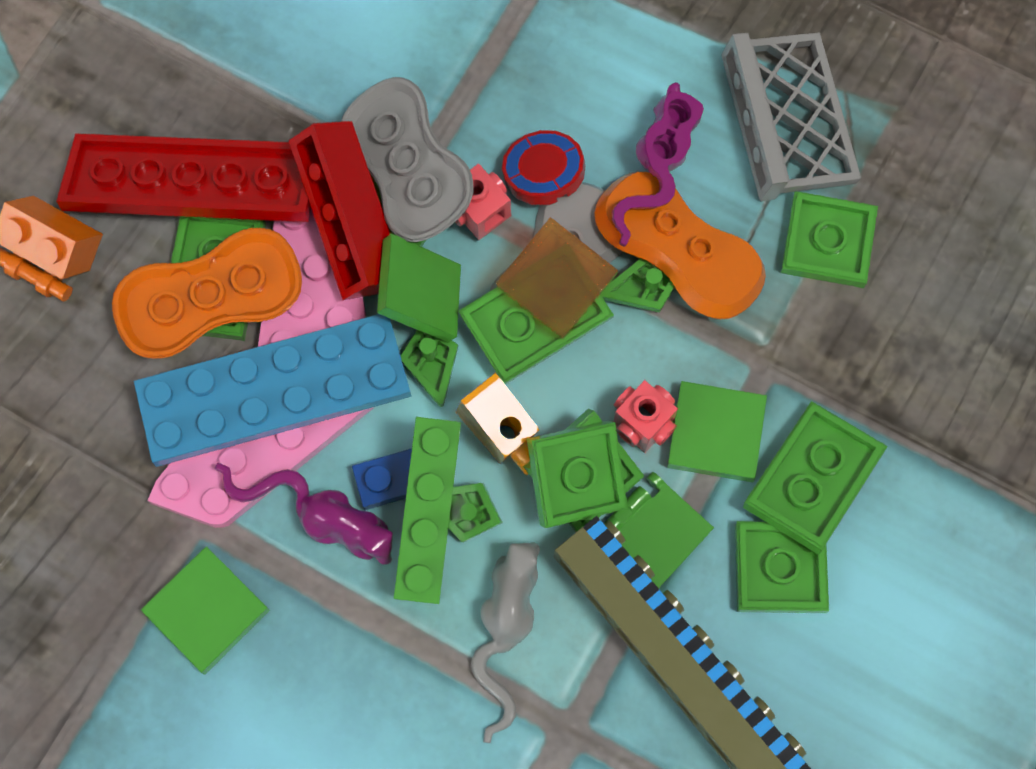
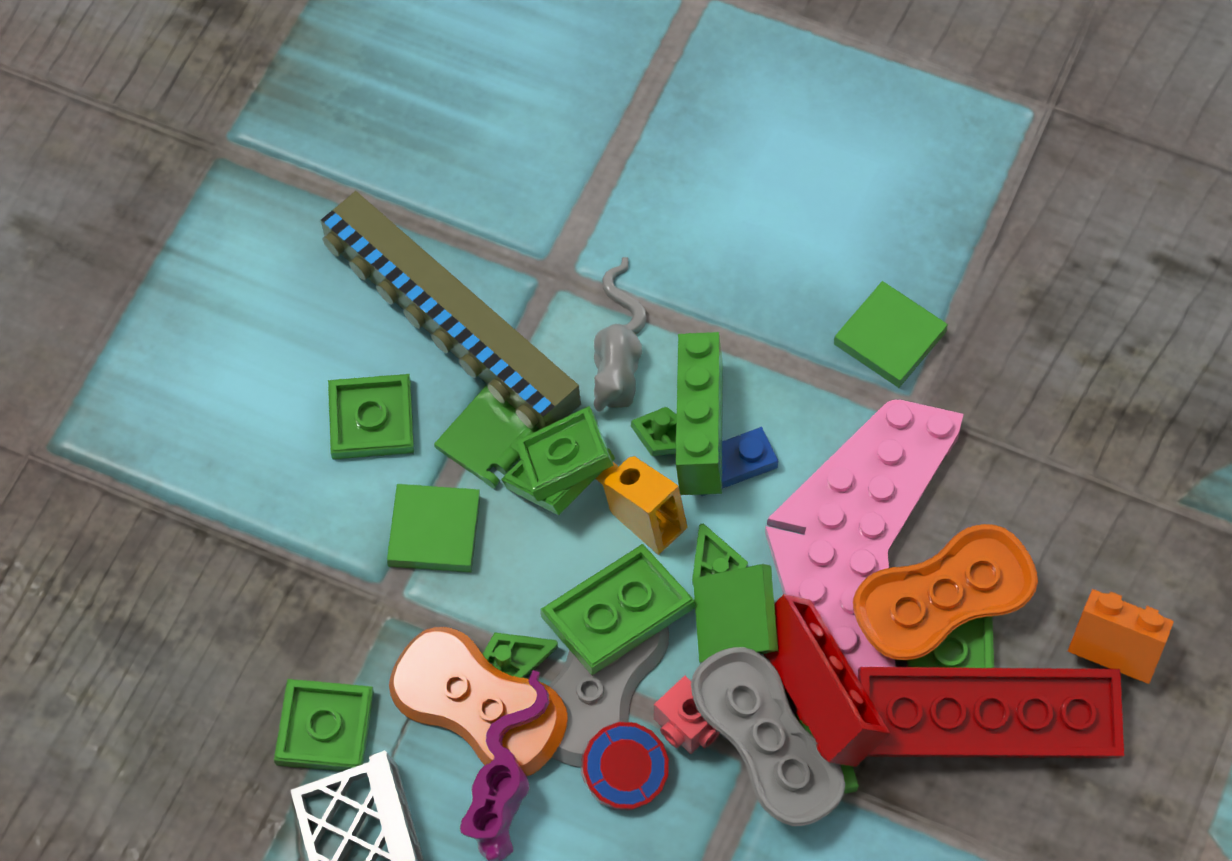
camera: 175 degrees right, 10 degrees down
(271, 389) = (864, 510): dark azure plate -> none
(324, 515) = (794, 411): magenta animal -> none
(556, 278) = (599, 628): clear orange tile -> none
(641, 429) = (503, 522): coral brick -> none
(814, 477) = (340, 490): bright green tile -> none

